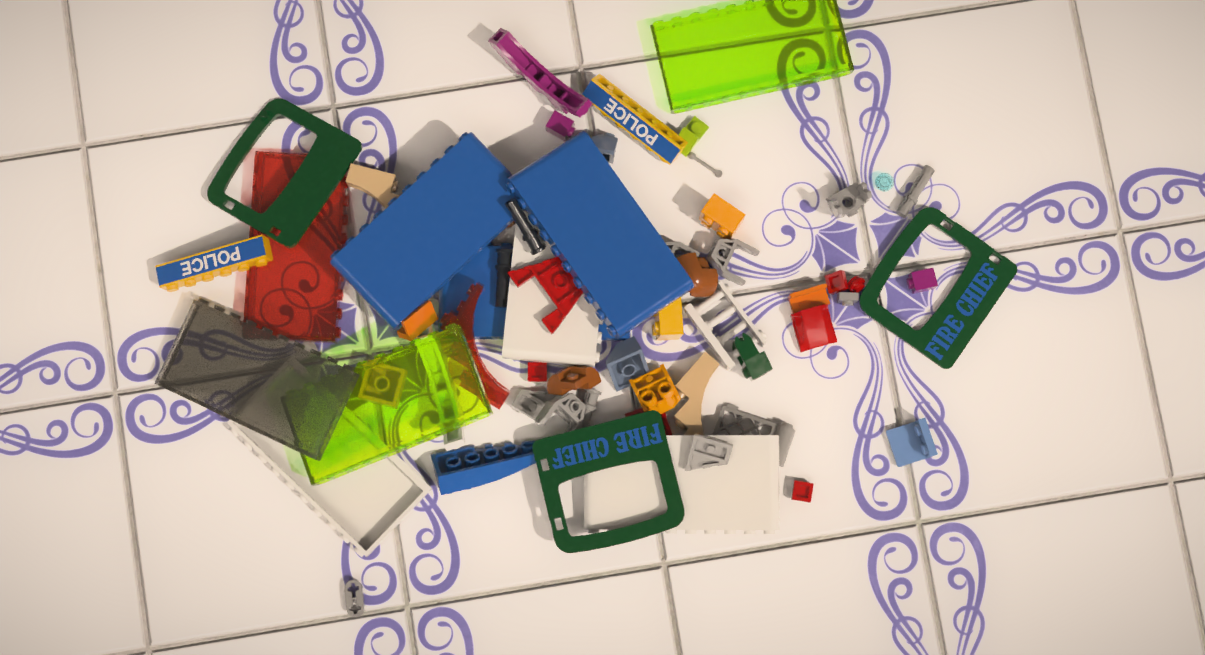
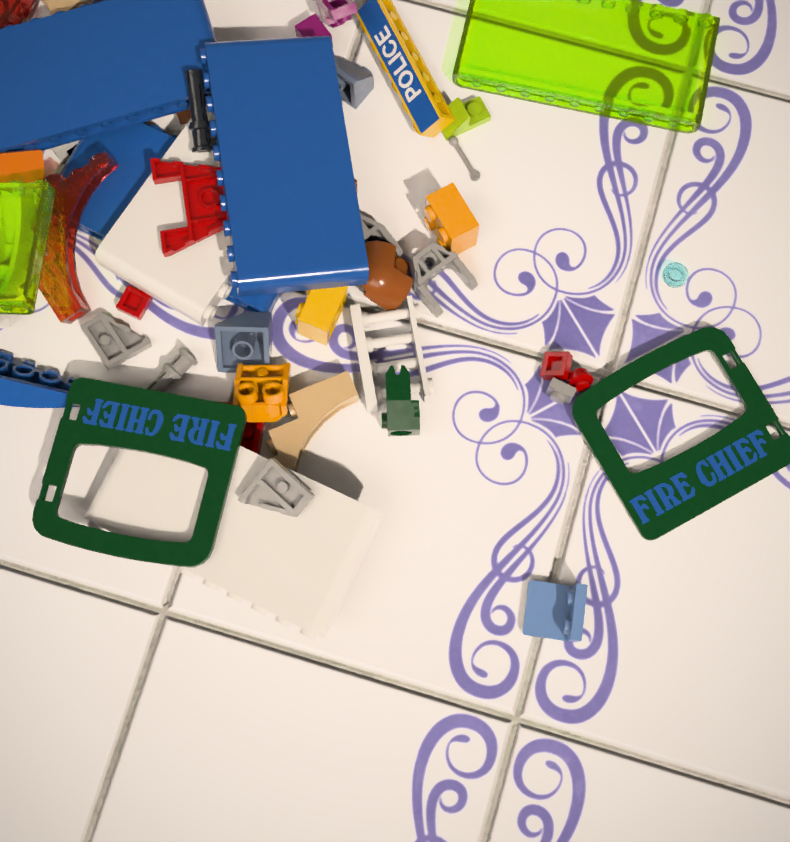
camera: 30 degrees right, 5 degrees down
(503, 267) = (157, 150): black pin -> none
(567, 407) = (136, 352): light grey piece -> none
(572, 379) = (167, 325): dark orange brick -> none
(785, 431) = (395, 520): light grey piece -> none
(802, 491) = (383, 605): red plate -> none
(808, 298) = (511, 369): orange panel -> none
(813, 328) = (500, 407): red slope -> none
(855, 193) = (632, 270): light grey piece -> none
(911, 197) = (700, 307): light grey pin -> none
(922, 280) = (666, 414): magenta brick -> none

